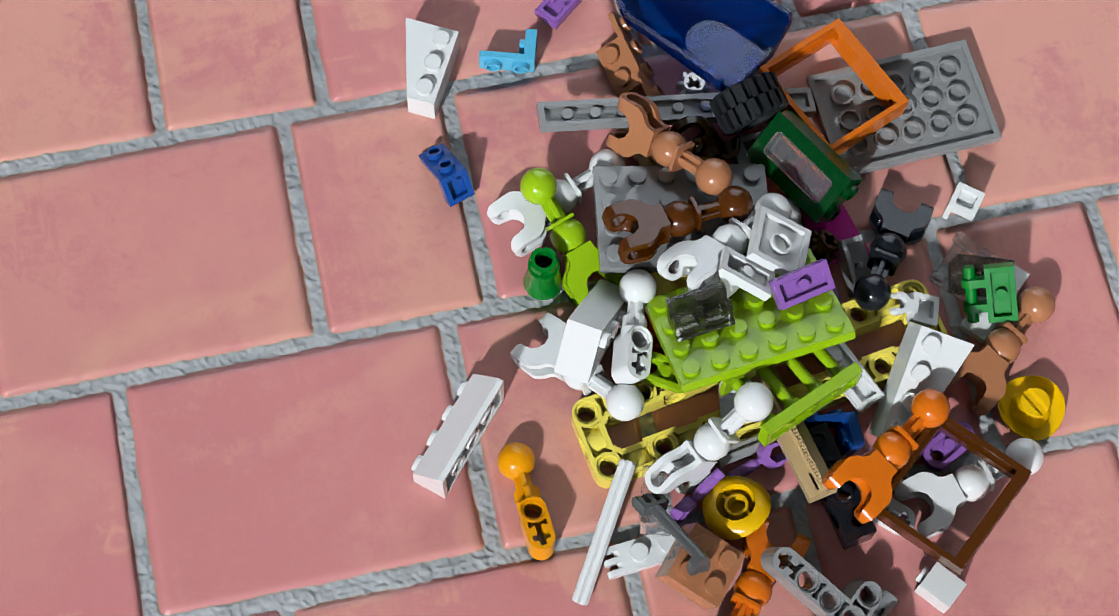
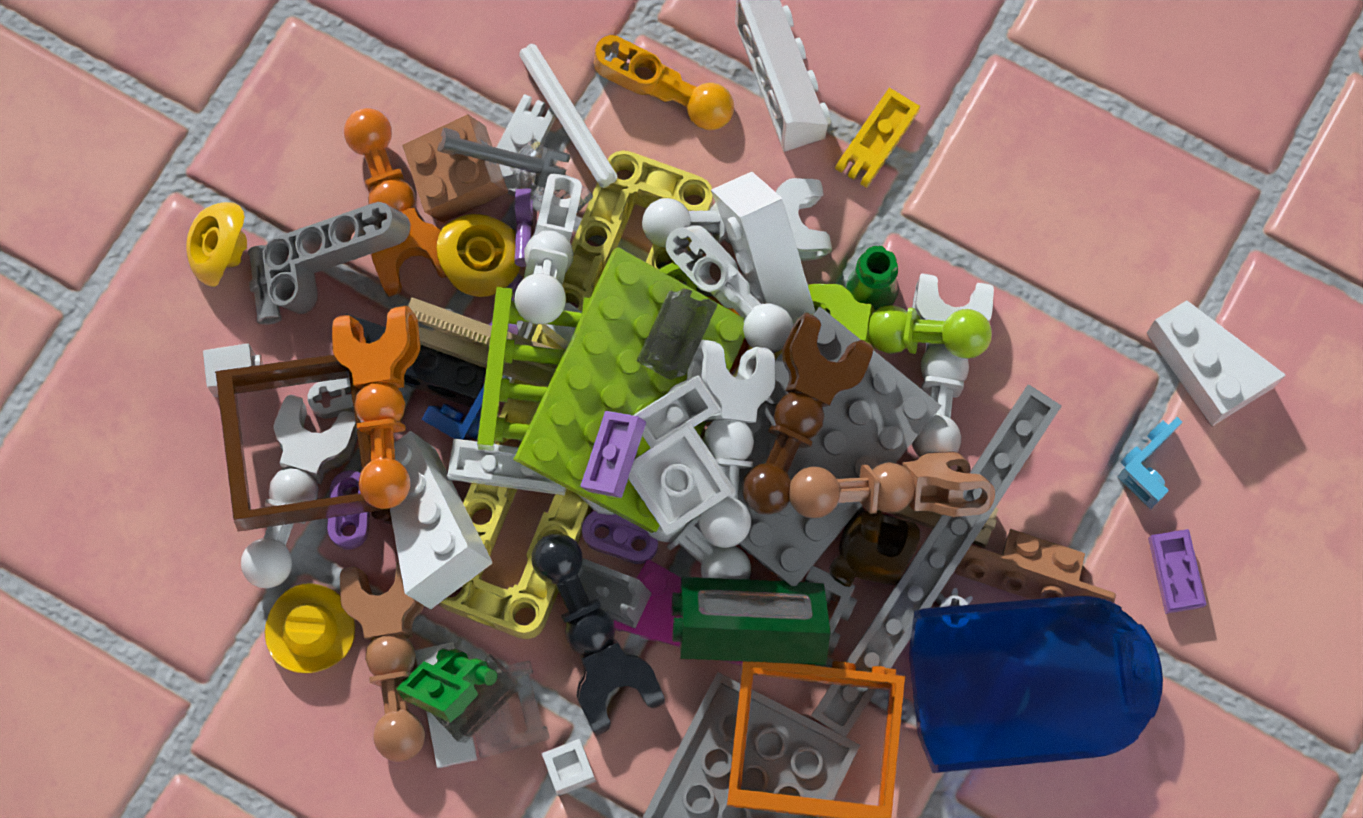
camera: 135 degrees right, 5 degrees up
(449, 173) = (1070, 280): blue bracket -> none
(449, 347) = (878, 136): none -> yellow hinge
(748, 103) = (868, 614): black tyre -> none
(823, 245) = (654, 563): dark brown gear -> none
(920, 308) = (496, 589): white plate -> none

